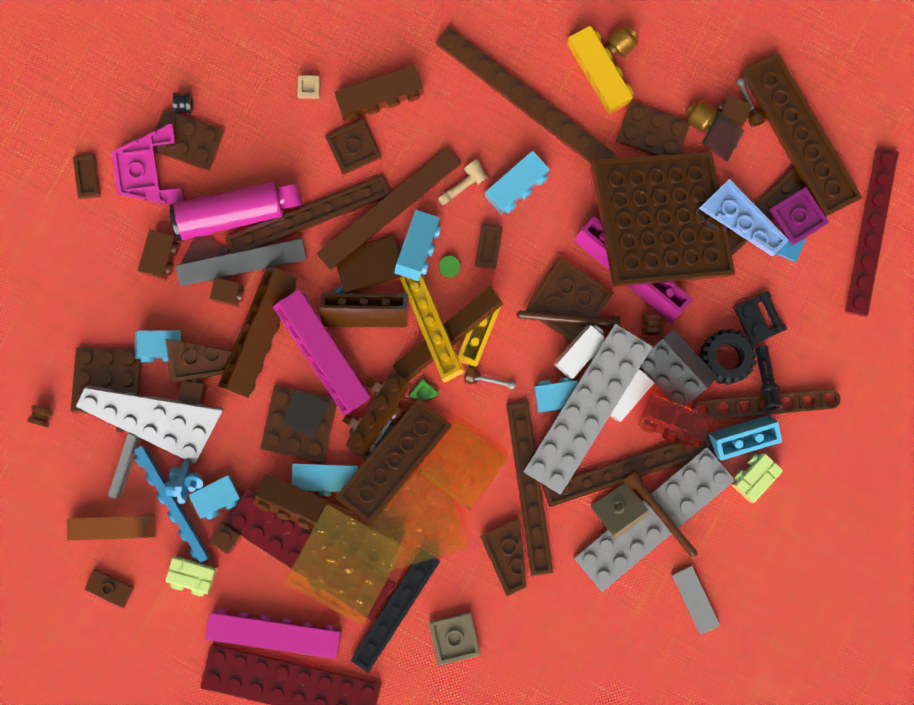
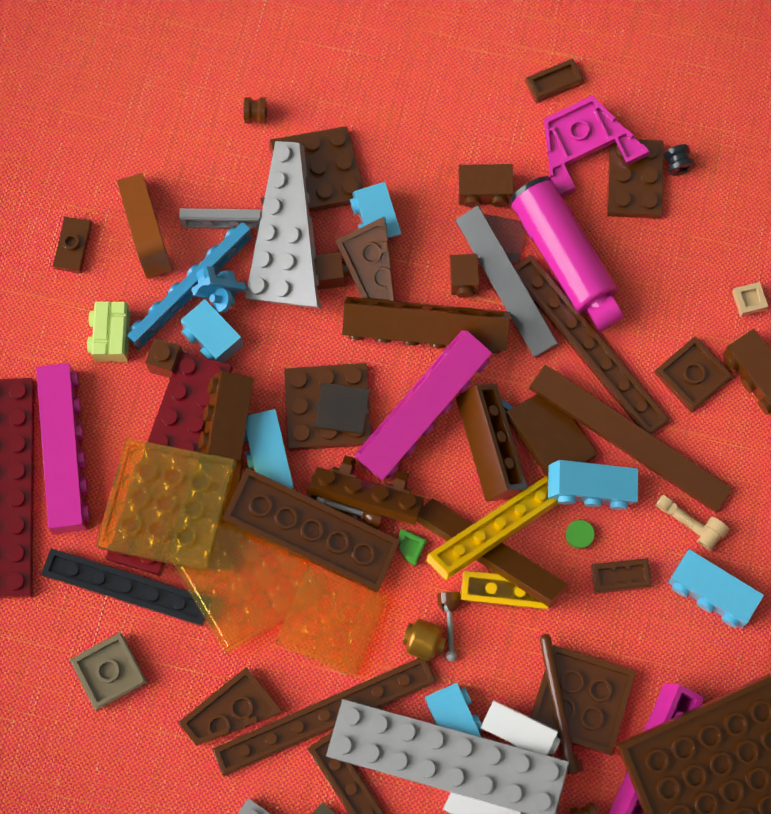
camera: 80 degrees right, 10 degrees down
(496, 401) = (424, 639): none -> pearl gold head

